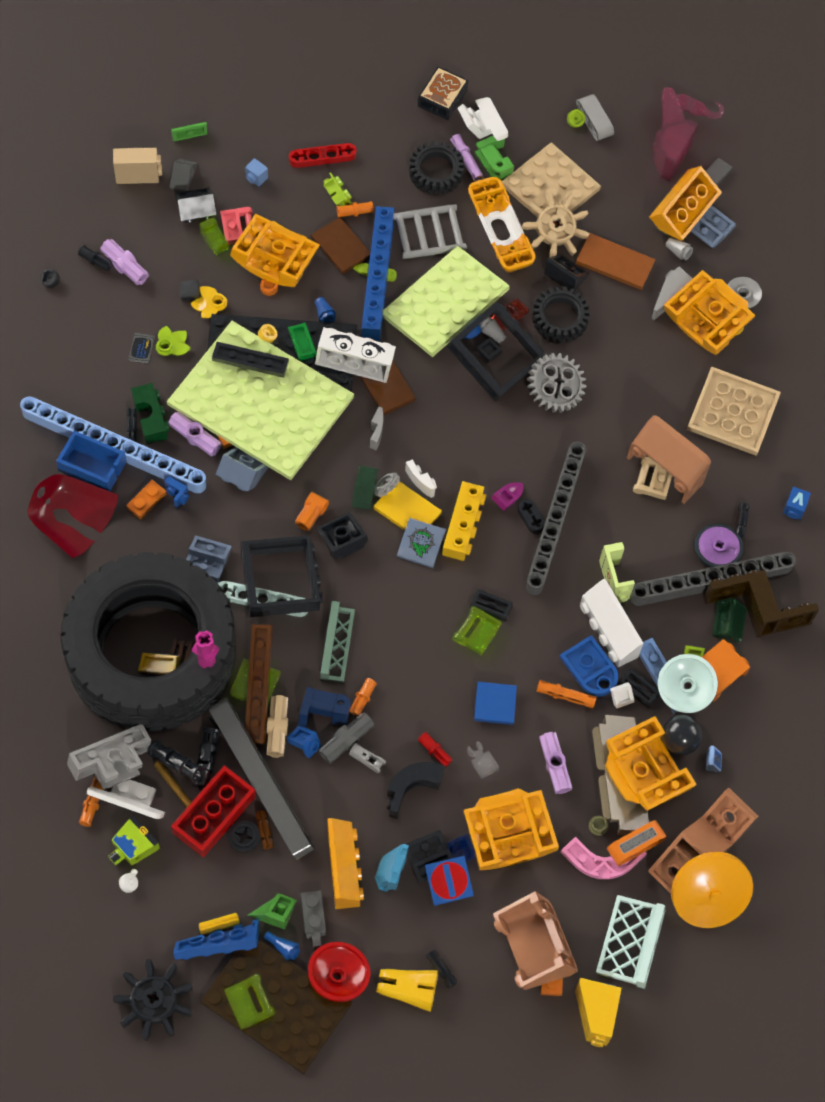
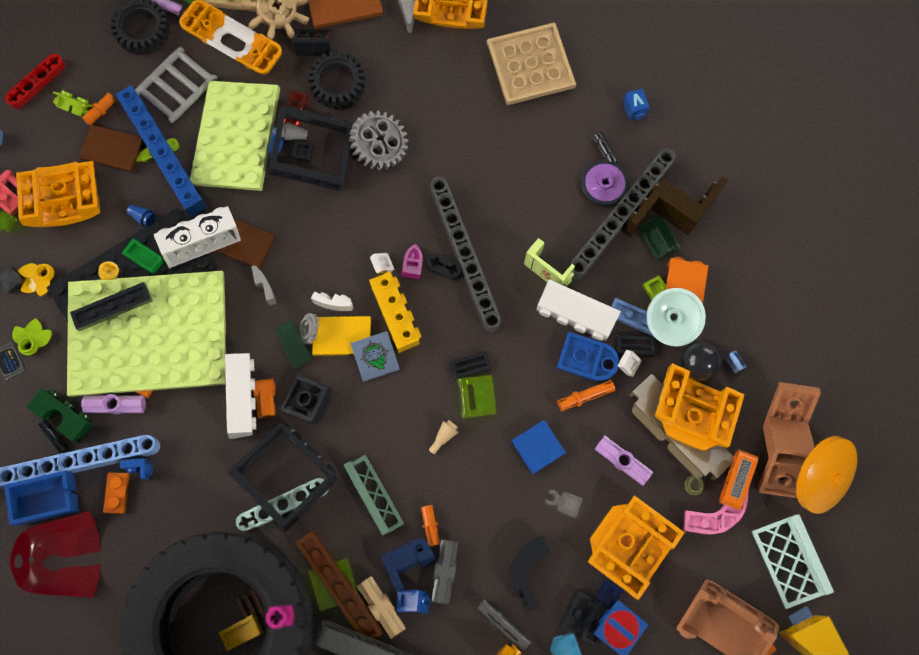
camera: 35 degrees left, 10 degrees up
(209, 556) = (209, 506): sand blue slope -> none
(241, 469) = (177, 406): sand blue slope -> none
(268, 288) = (77, 229): orange tile -> none
(293, 492) = (238, 395): none -> white slope
(359, 803) = (497, 619): none -> dark grey pin
(364, 757) = (470, 575): light grey bar -> none
(430, 639) = (445, 433): none -> tan cone
(435, 749) = (522, 524): red axle -> none
(483, 477) = (382, 263): none -> white plate
(659, 483) = (519, 160): tan plate -> none
(673, 454) = (518, 134): nougat windscreen -> none

